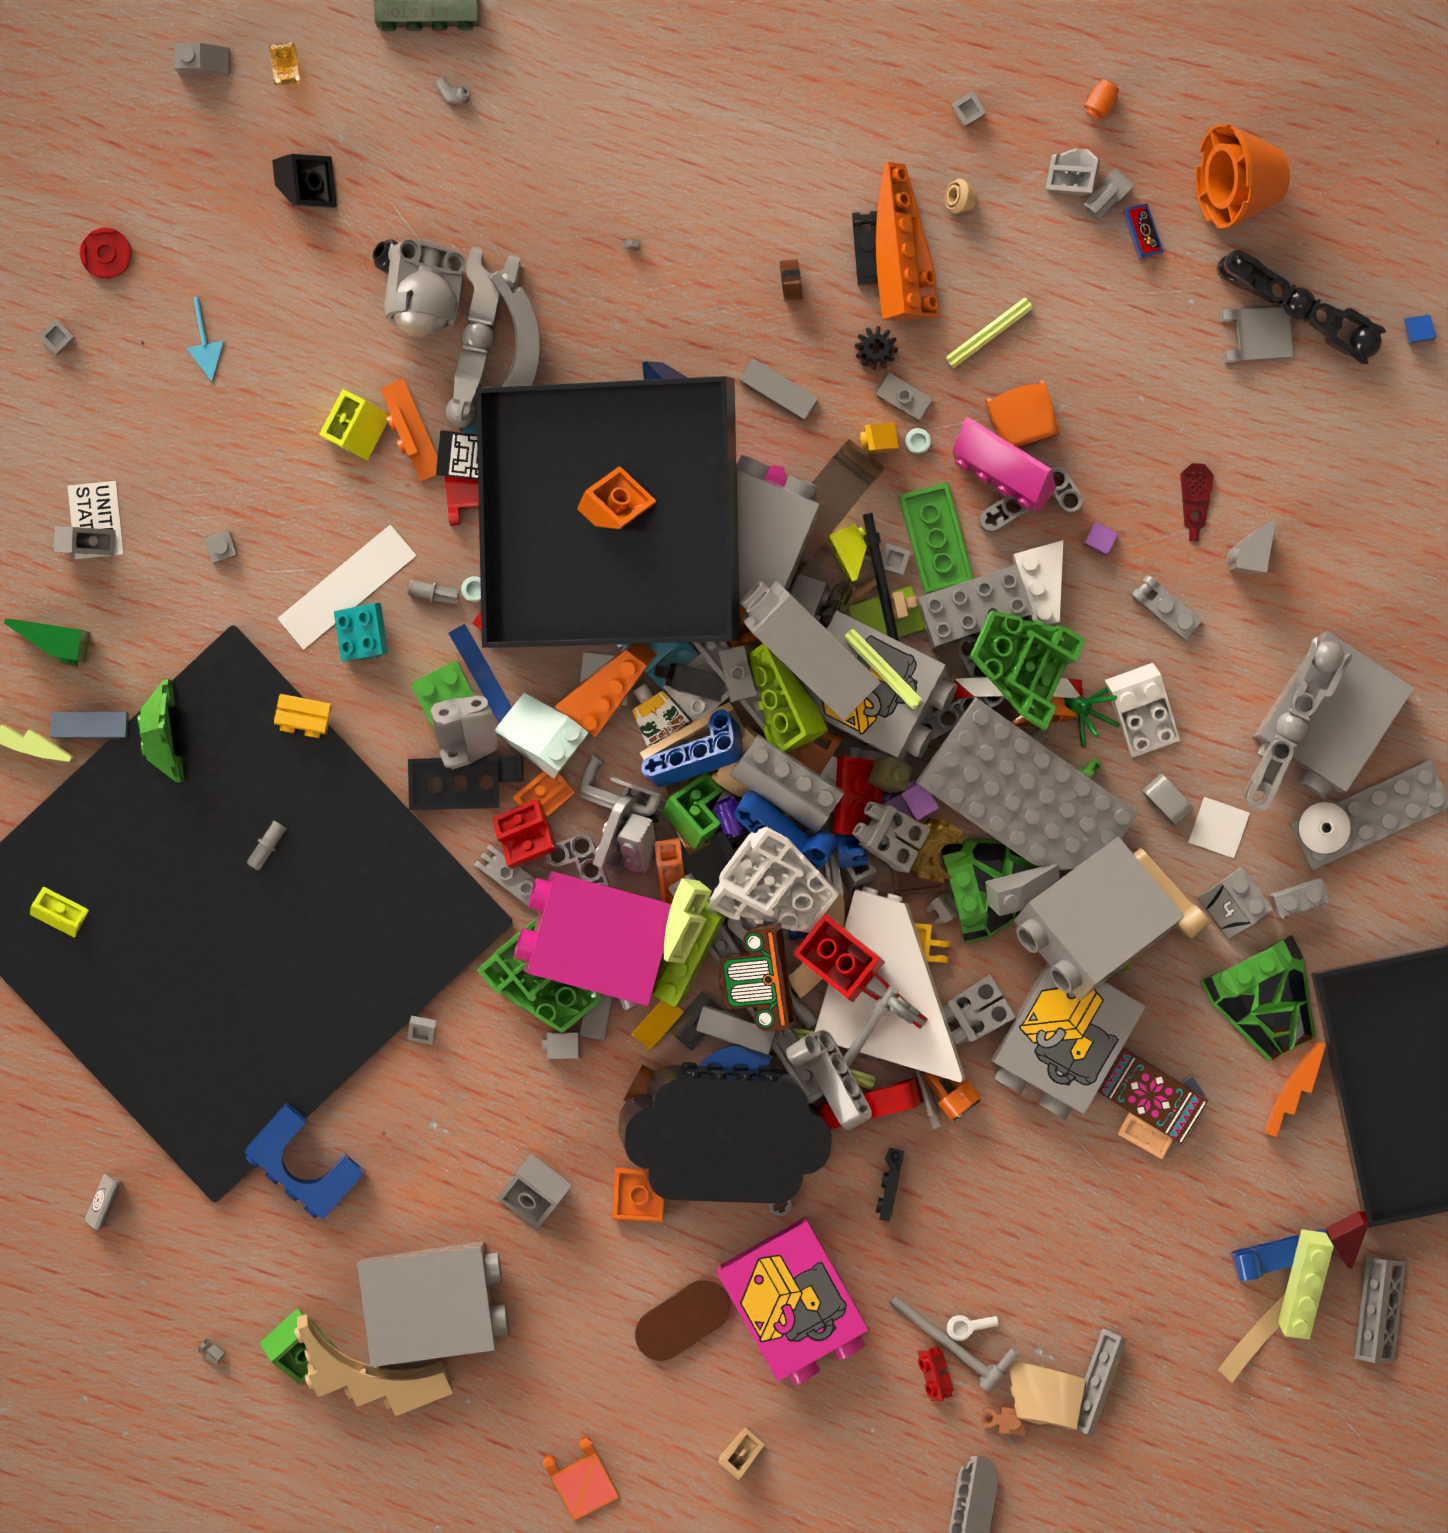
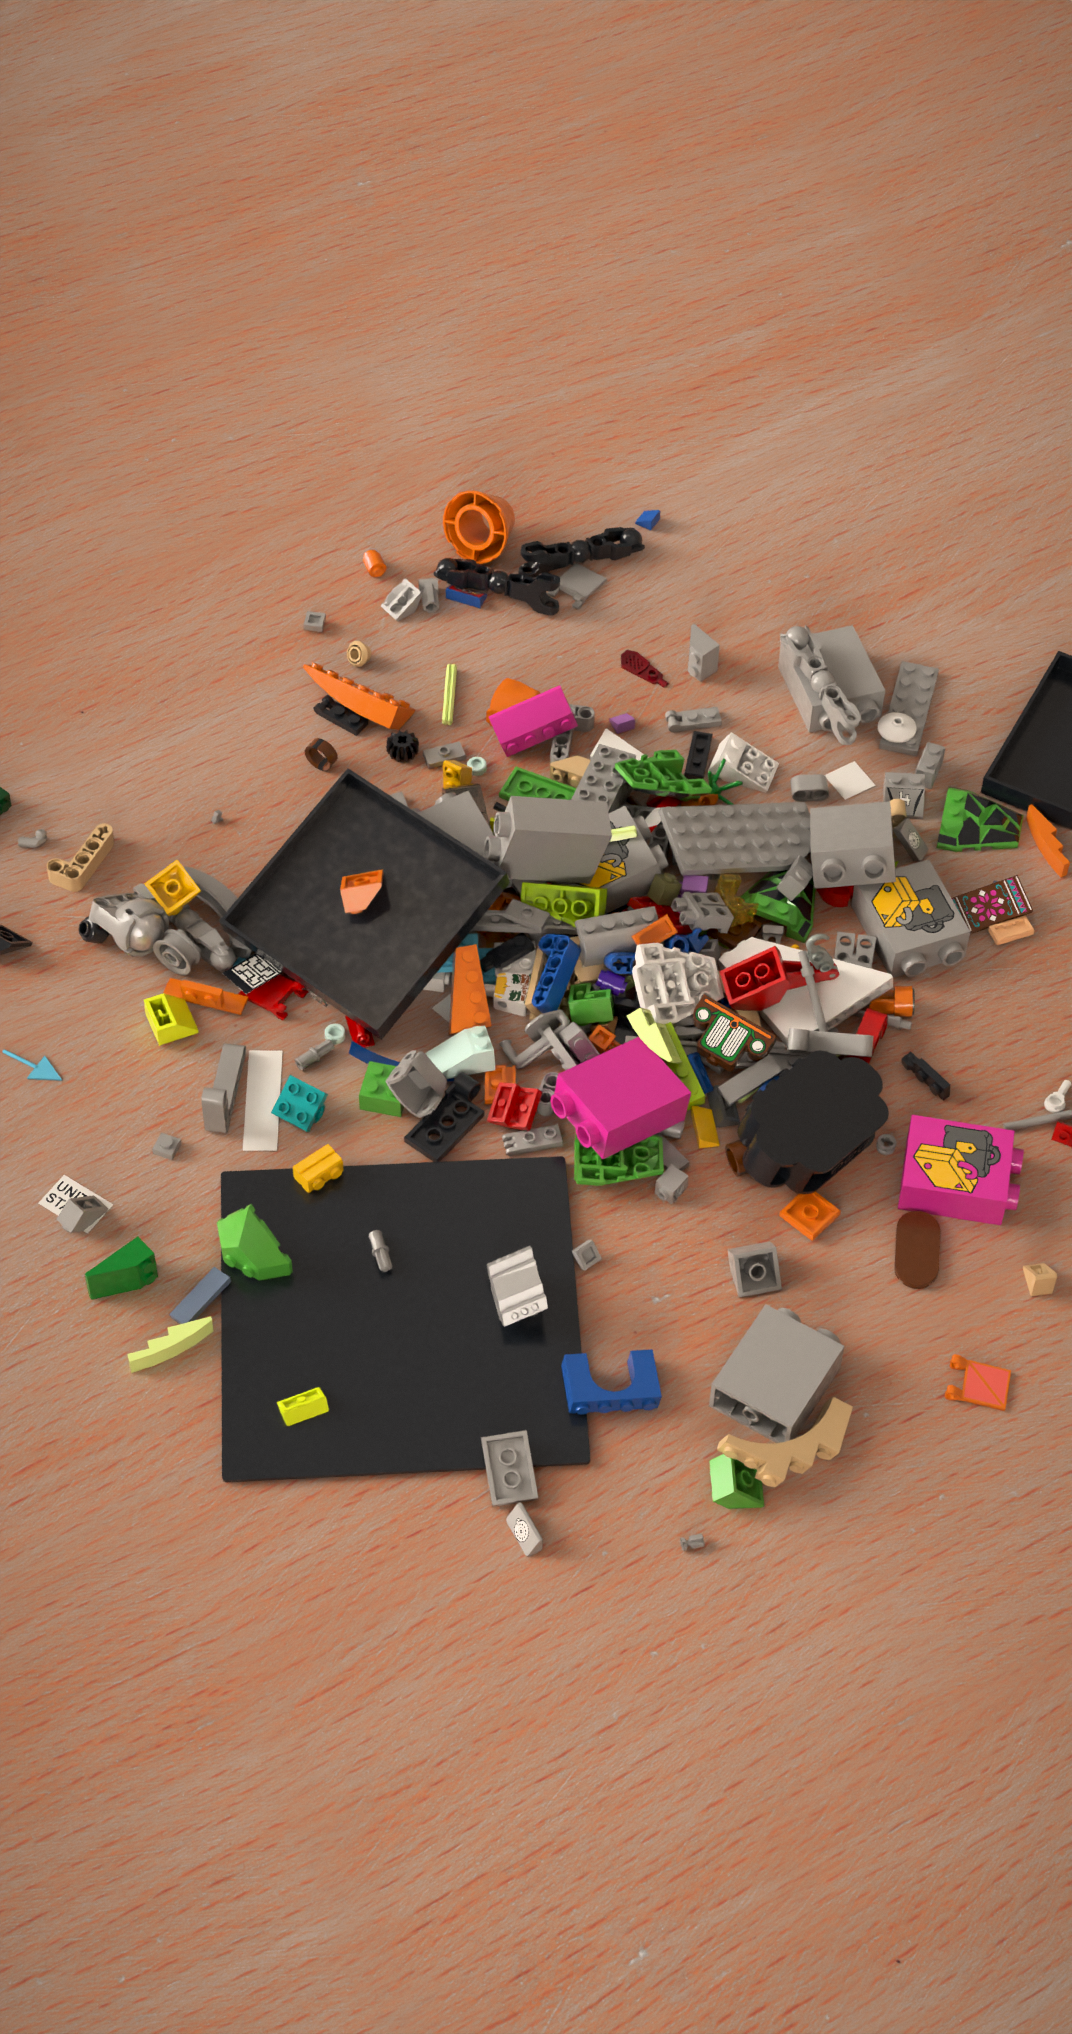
camera: 50 degrees left, 35 degrees down
(145, 1143) = (509, 1468): none -> light grey plate
(288, 567) = (220, 1100): none -> light grey beam
(320, 1007) = (516, 1286): none -> light grey slope
(429, 365) = (177, 951): none -> light grey wheel
(473, 162) = (76, 874): none -> tan beam
(481, 304) = (173, 888): none -> yellow slope
(702, 977) = (700, 1072): none -> blue slope
(807, 822) = (655, 932): none -> orange tile
(989, 548) = (569, 770): none -> tan slope
(1121, 651) = (698, 755): none -> black tile
(1174, 958) = (911, 840): none -> light grey slope
(1180, 256) = (469, 574): none -> black piece

